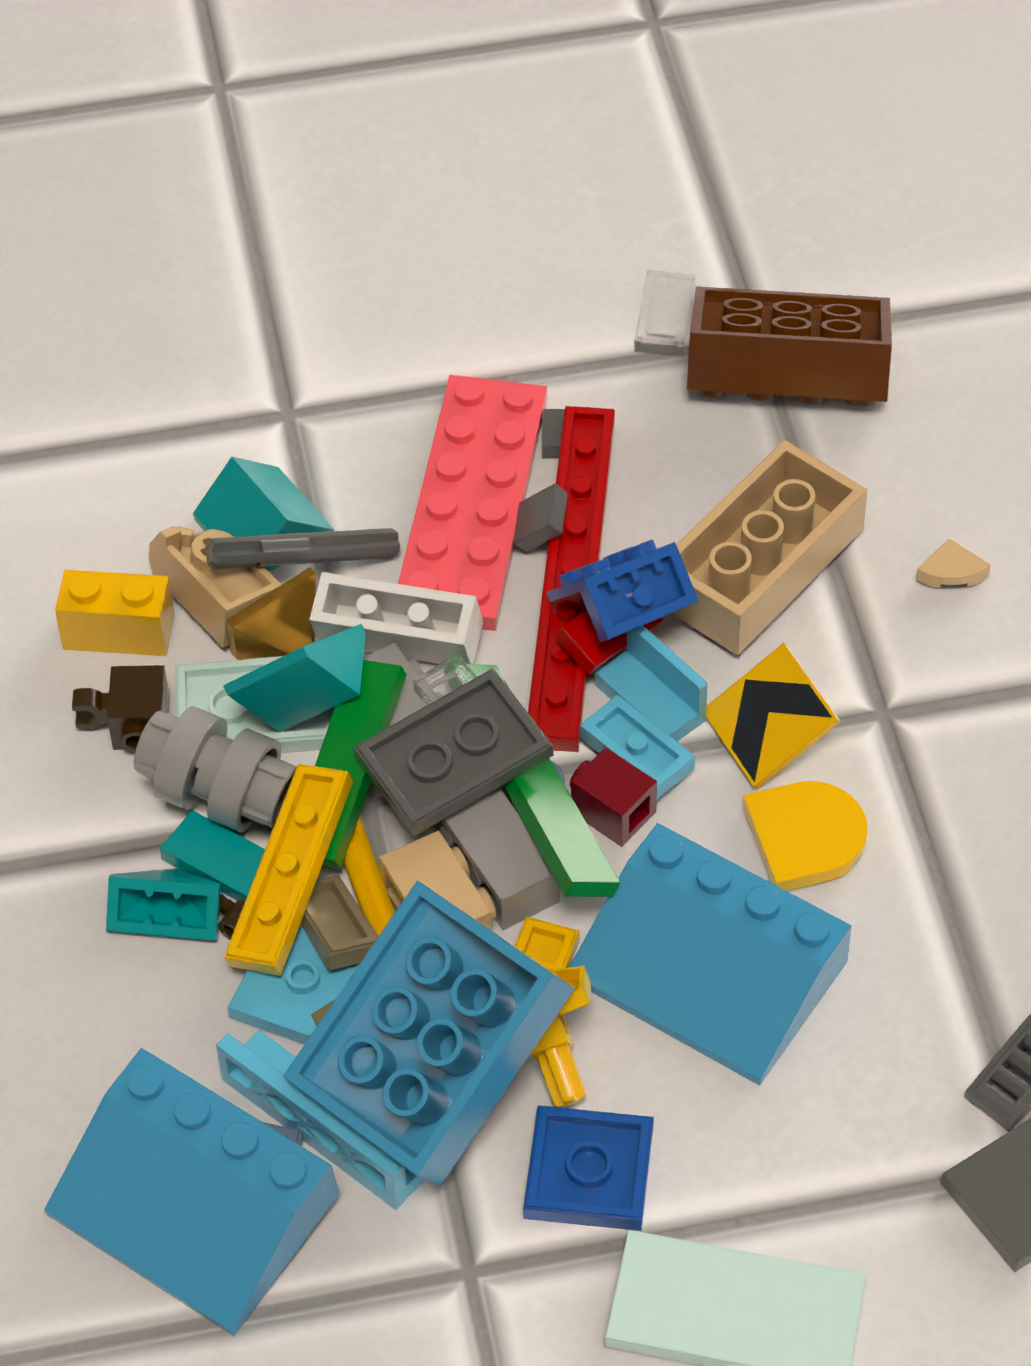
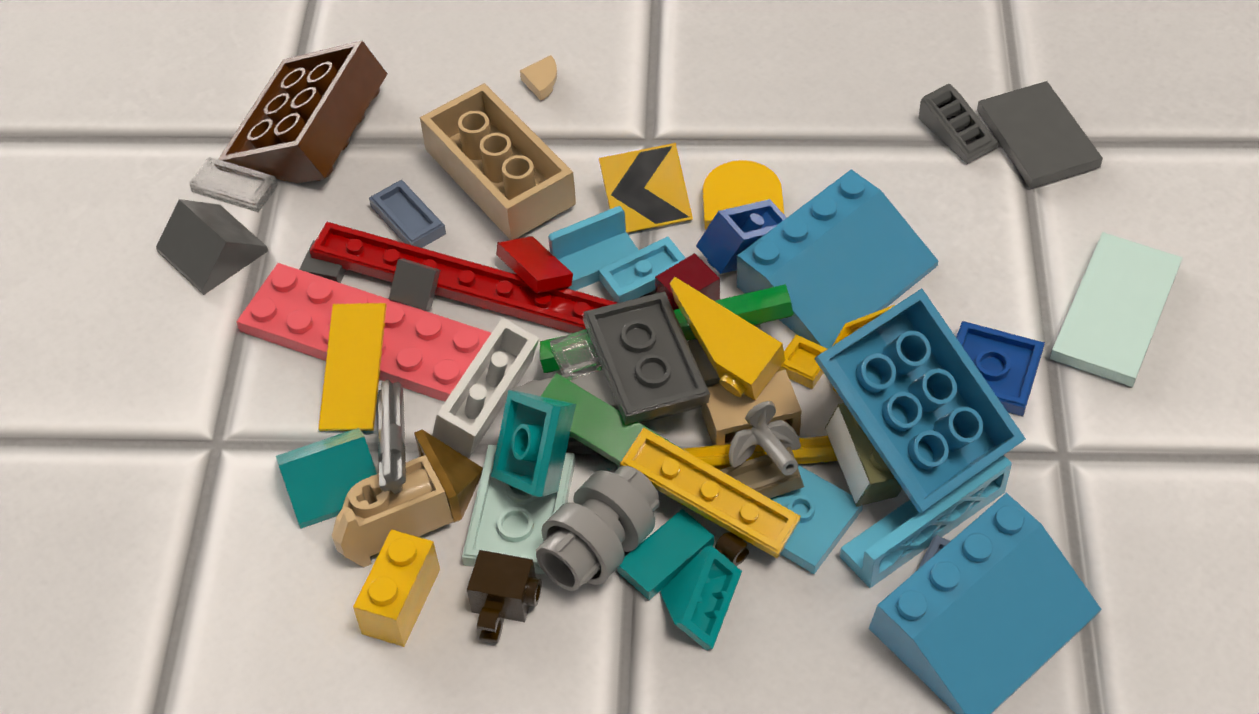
camera: 75 degrees left, 0 degrees up
(371, 900) = (771, 436): none -> light grey plant
(409, 492) = (352, 367): none -> yellow piece
(486, 823) = (736, 349): none -> yellow slope
(565, 318) = (207, 244): none -> dark grey slope
(630, 587) = (519, 220): blue bracket -> none
(666, 490) = (407, 215): none -> sand blue tile
(724, 828) = (736, 230): none -> blue slope

